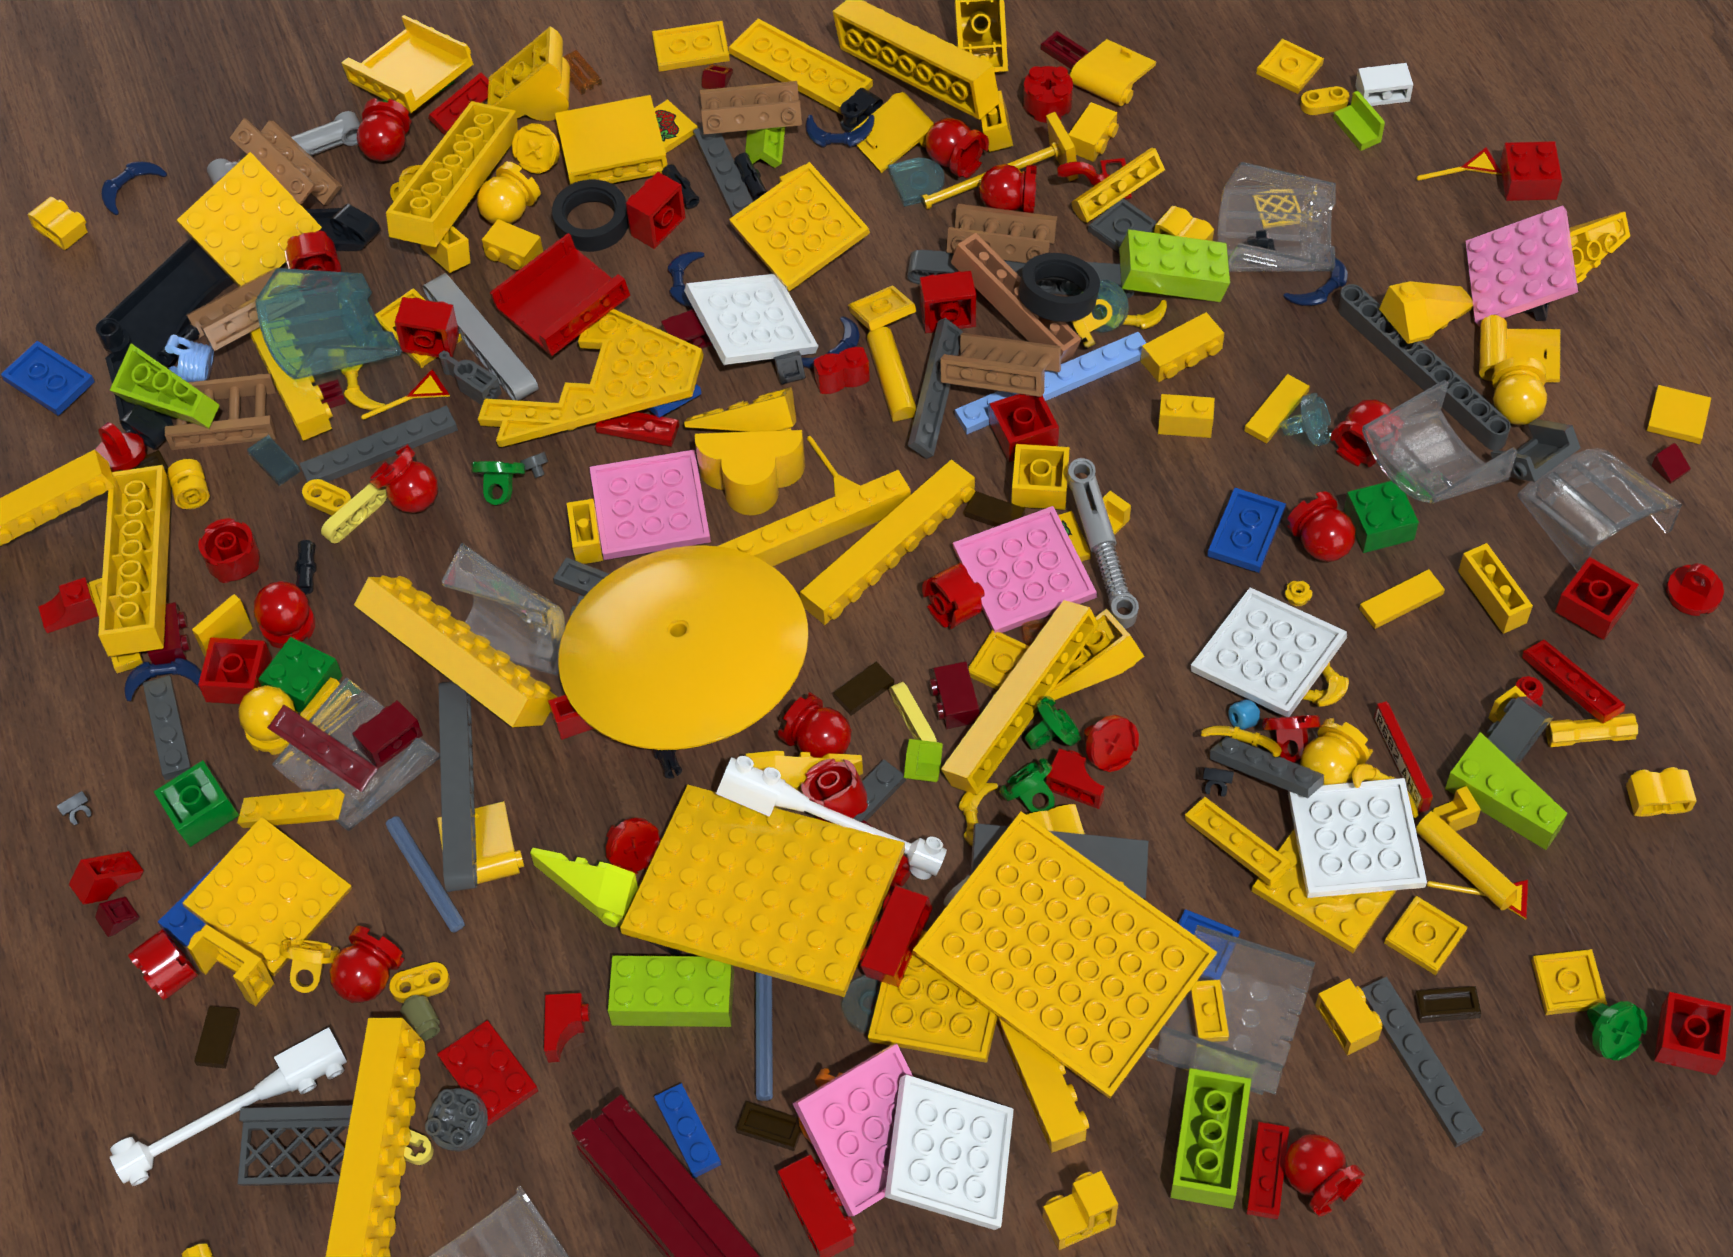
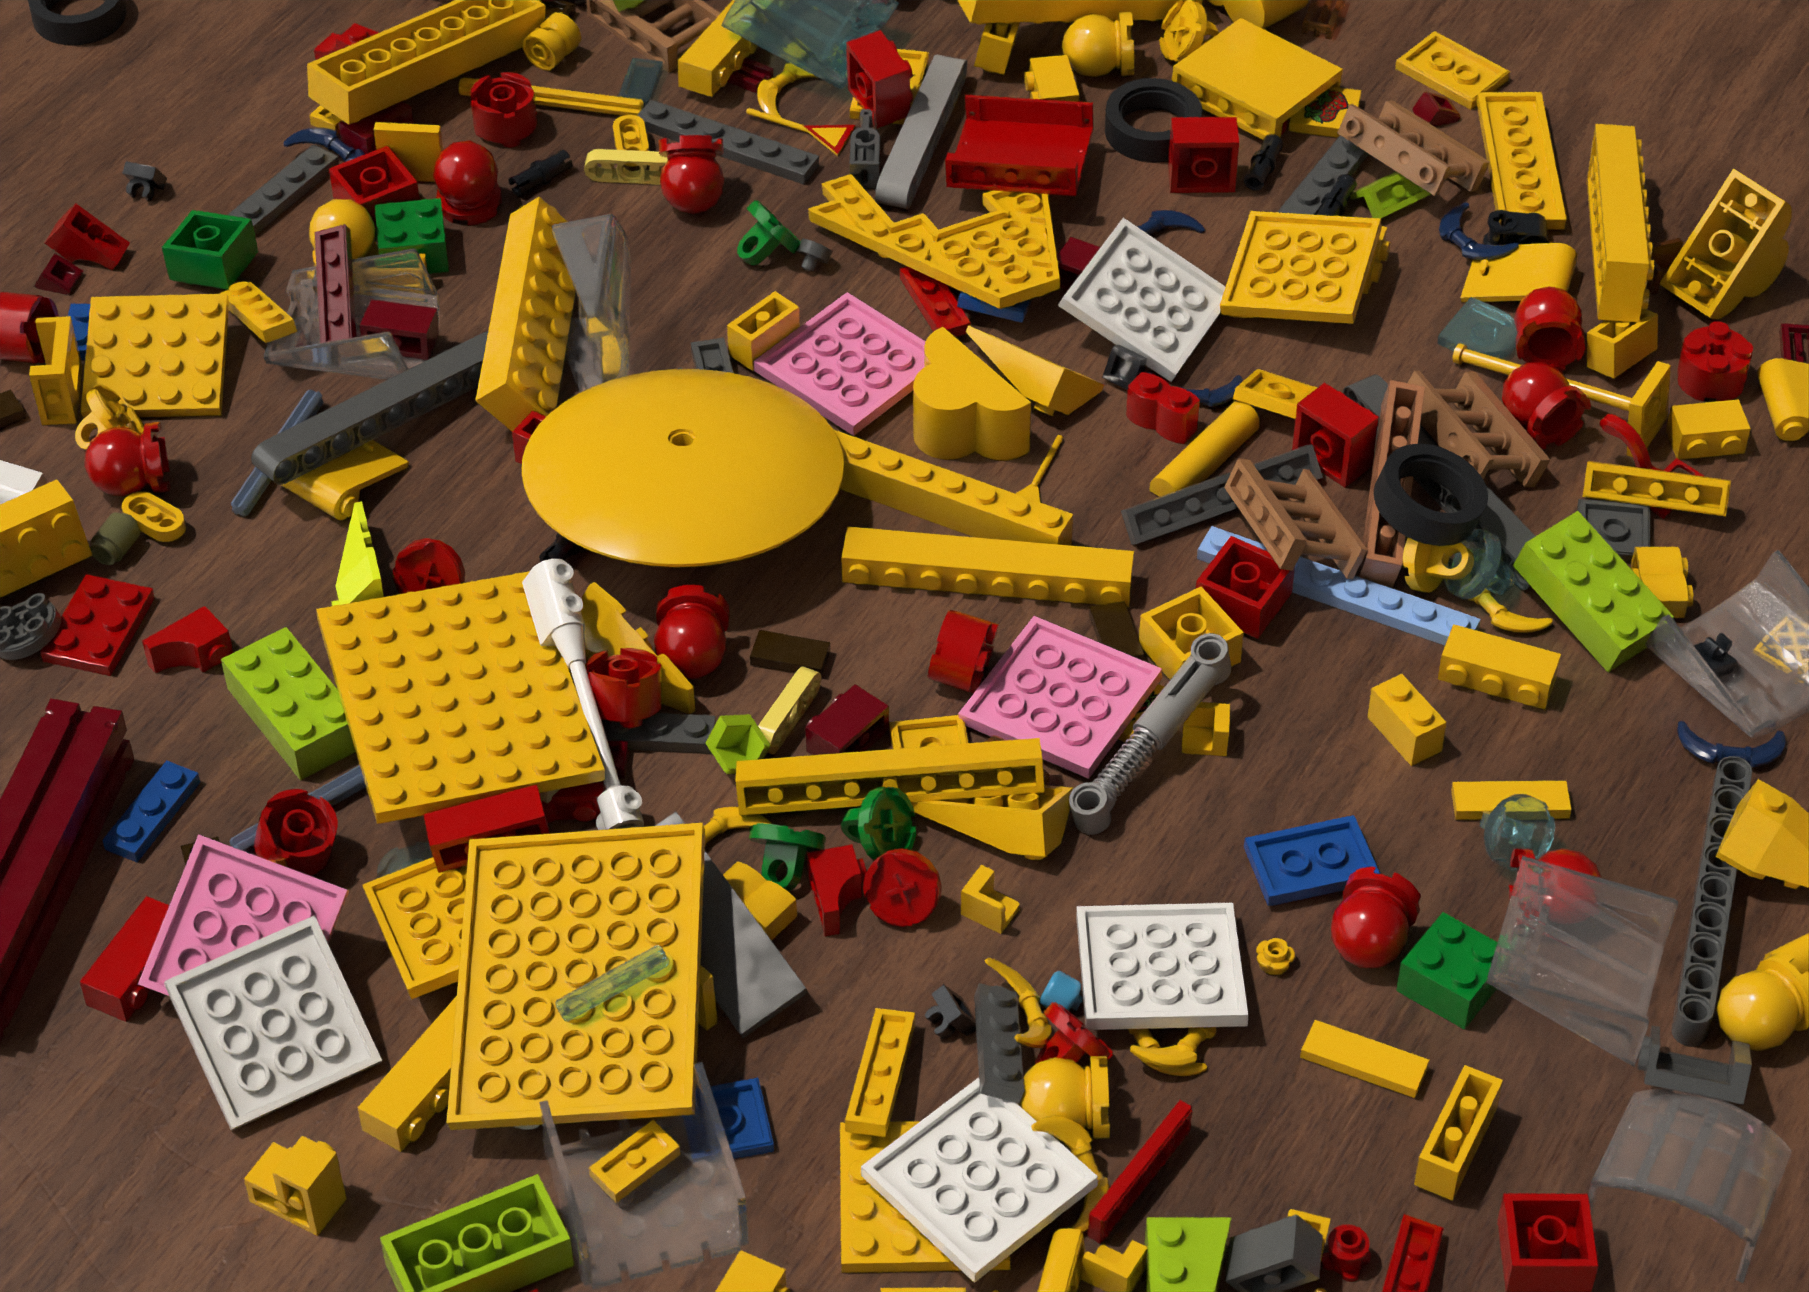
camera: 50 degrees right, 10 degrees down
(242, 513) = (573, 99): none -> yellow axle
(797, 1052) = (298, 830): none -> red brick
(1097, 937) = (612, 983): none -> clear light blue axle
(1148, 709) = (985, 904): none -> yellow panel

